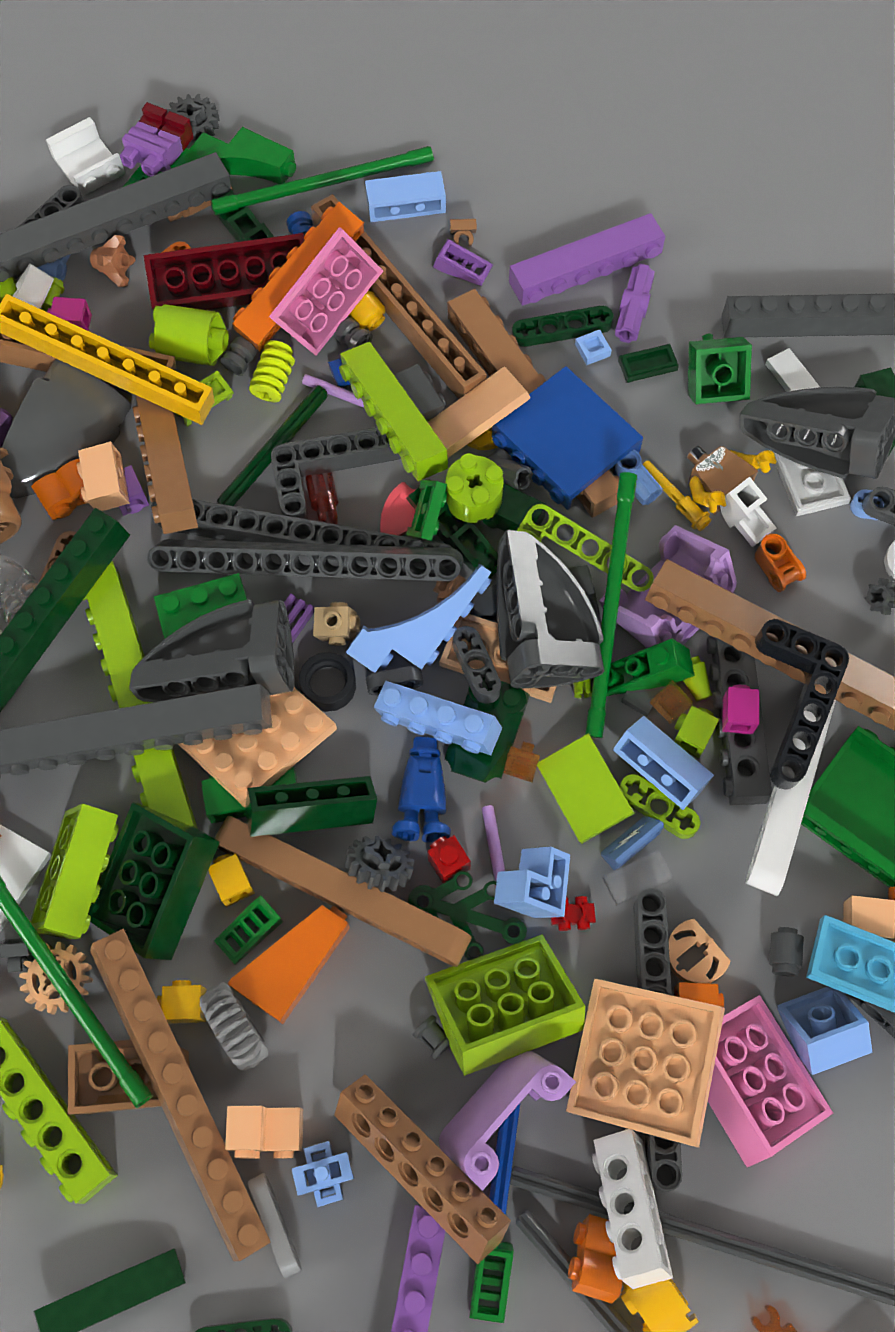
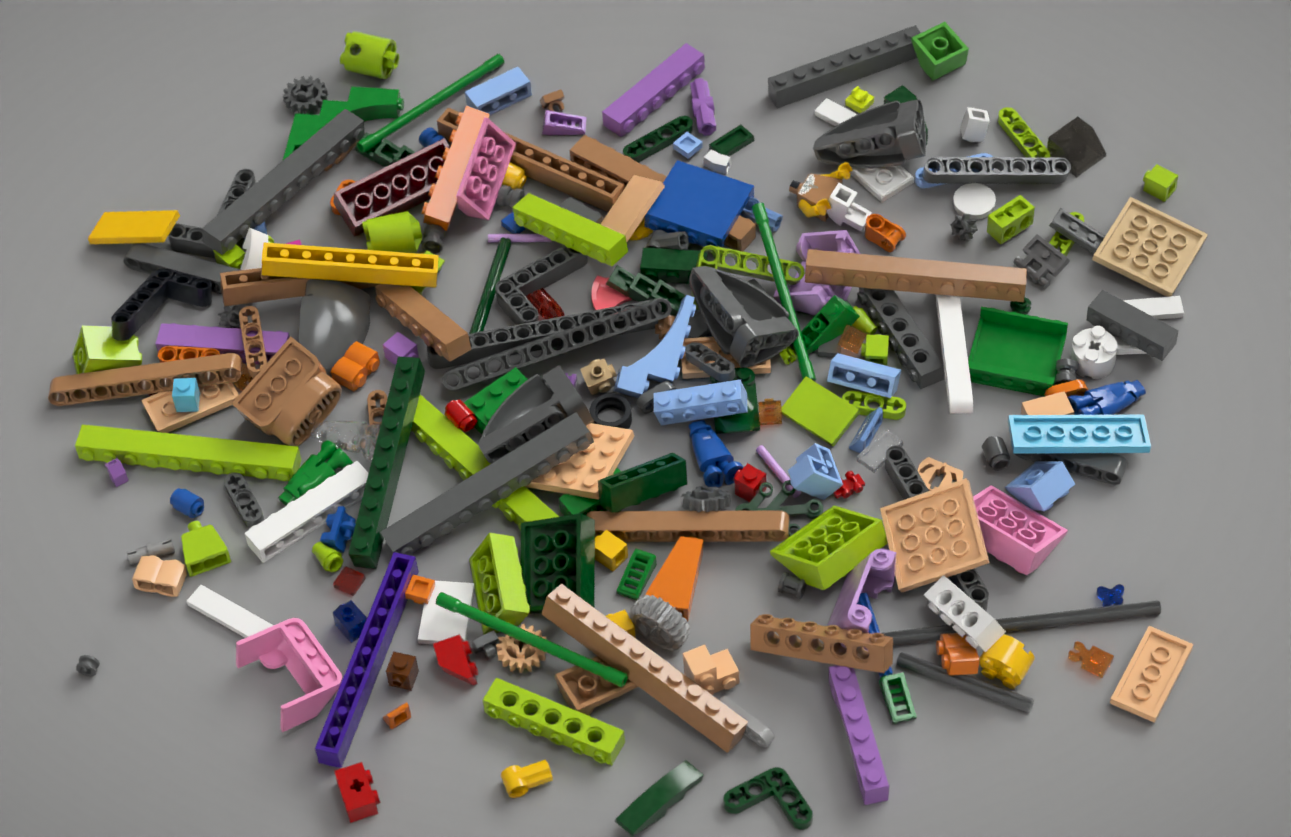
camera: 20 degrees left, 15 degrees down
(84, 157) = (236, 150): white panel -> none
(102, 477) = (385, 342): light nougat brick -> none
(113, 260) = (302, 209): nougat rock -> none
(142, 612) = (460, 415): none -> red brick
(156, 140) = (294, 116): medium lavender hips -> none
(272, 371) = (464, 239): neon yellow piece -> none
(282, 94) = (369, 55): none -> lime cylinder
(323, 1174) = (762, 681): light blue piece -> none
(425, 520) = (628, 280): green plate -> none
(474, 488) = (654, 256): lime brick -> none
(618, 383) = (717, 162): none -> white piece
(685, 504) = (801, 221): yellow pin -> none
(719, 369) = (785, 126): green piece -> none
(740, 710) = (900, 322): dark pink brick -> none
(810, 699) = (940, 269): black beam -> none
(828, 366) = (859, 100): none -> neon yellow tile
(850, 1249) = (1111, 596): none -> clear blue piece

